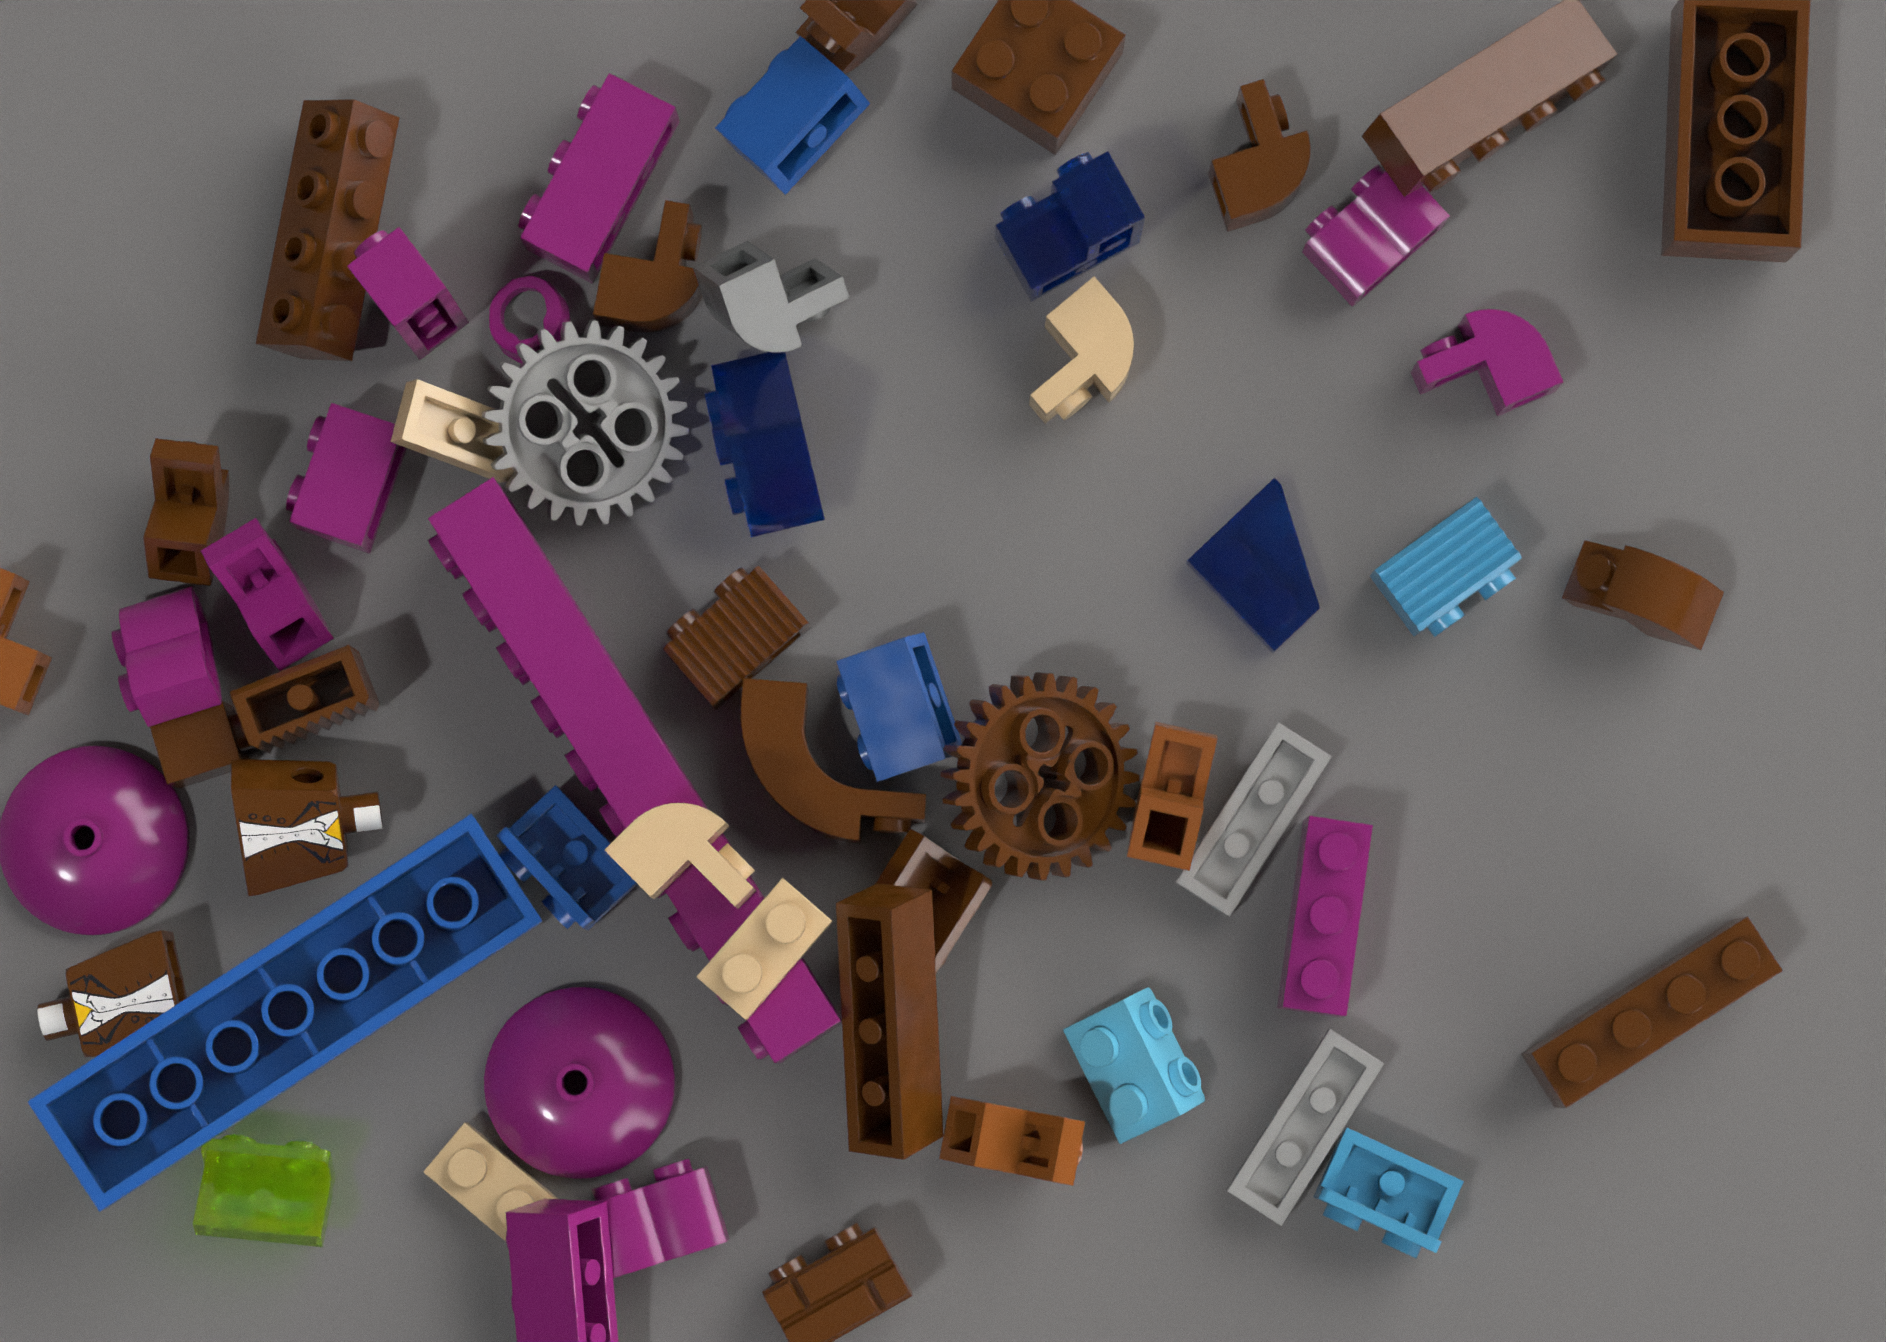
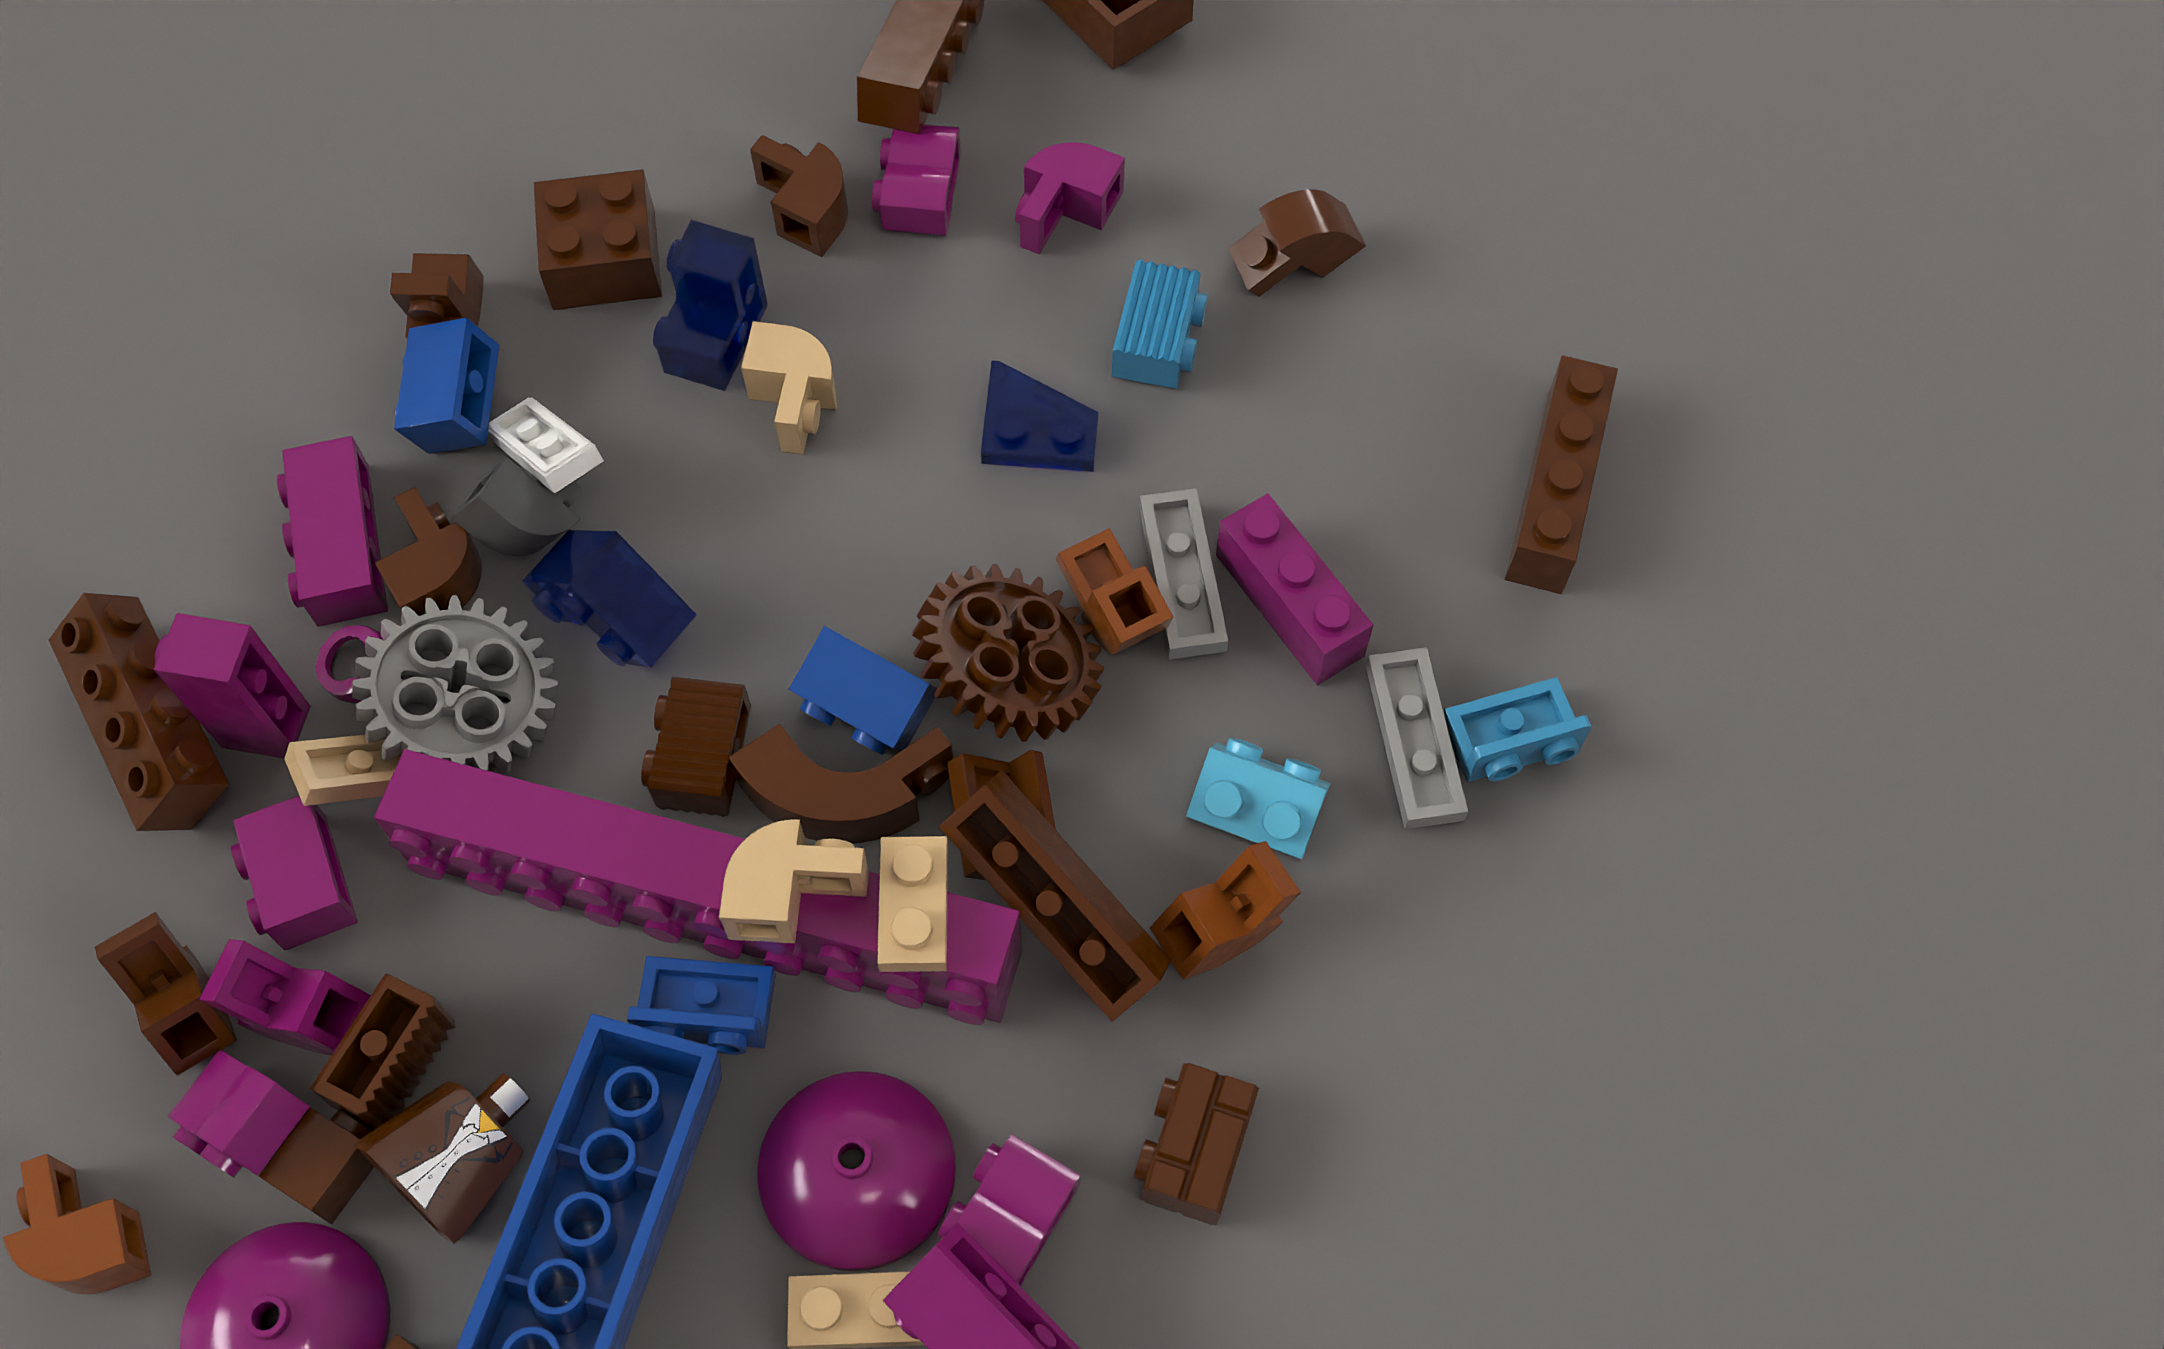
camera: 45 degrees left, 20 degrees down
(824, 251) = (544, 444): none -> white tile

